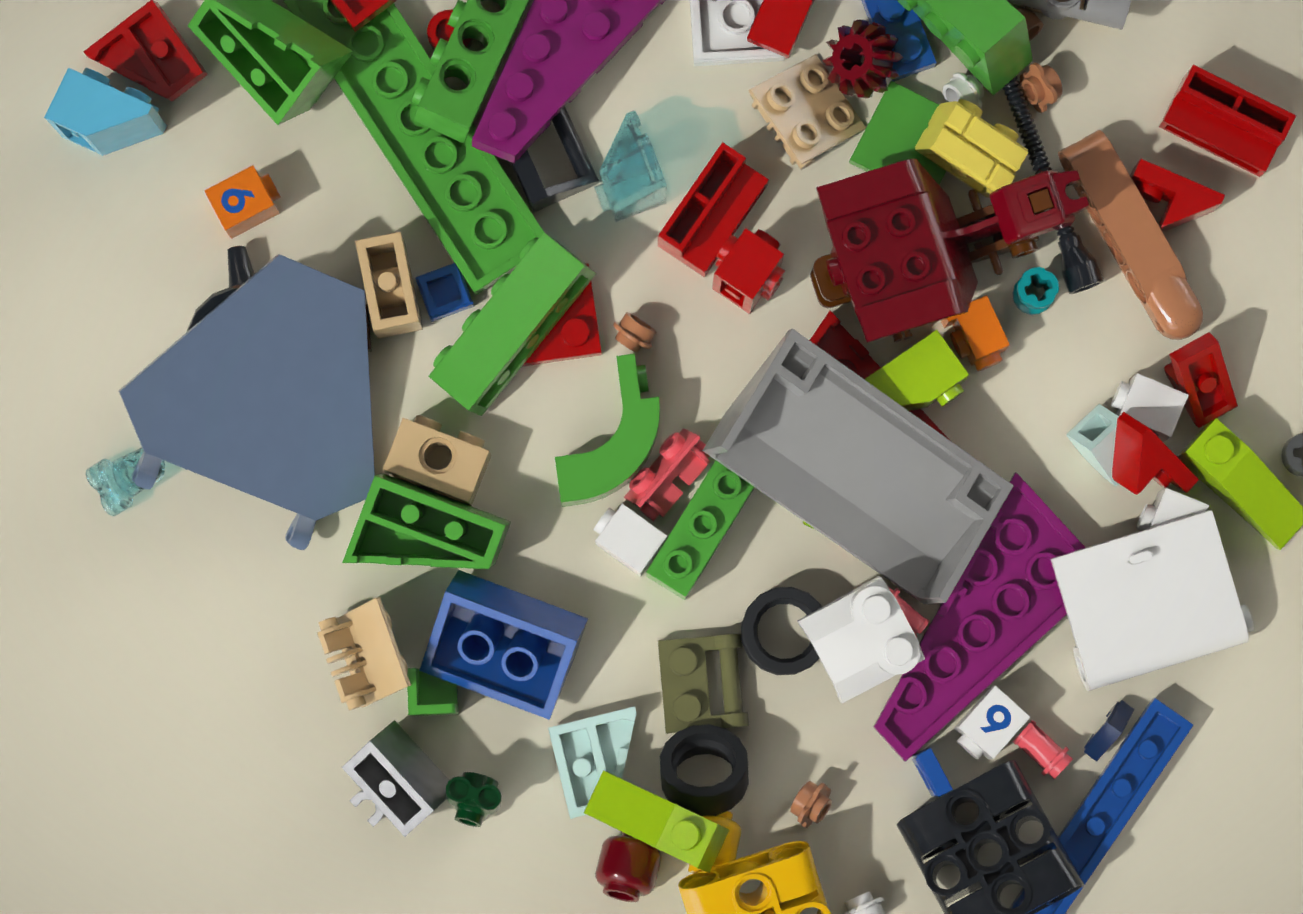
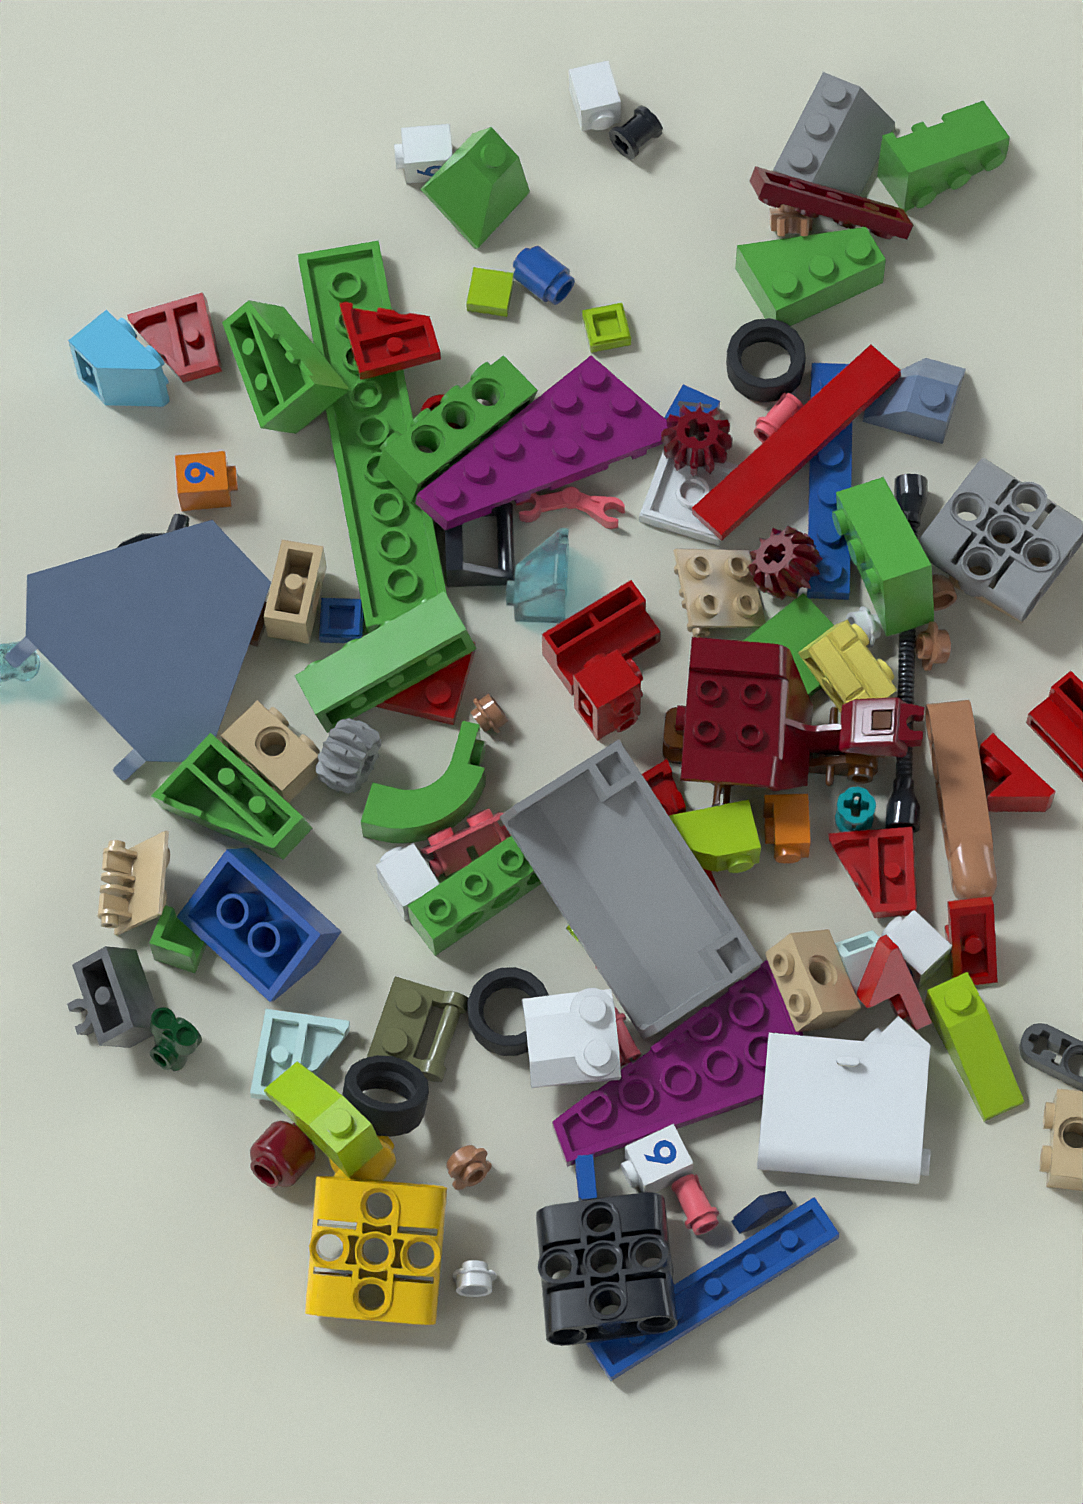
camera: 25 degrees right, 15 degrees down
(517, 436) = (348, 755): none -> light grey gear
(619, 70) = (571, 498): none -> coral piece
(1067, 483) = (812, 980): none -> tan brick
(1082, 338) = (880, 868): none -> red wing

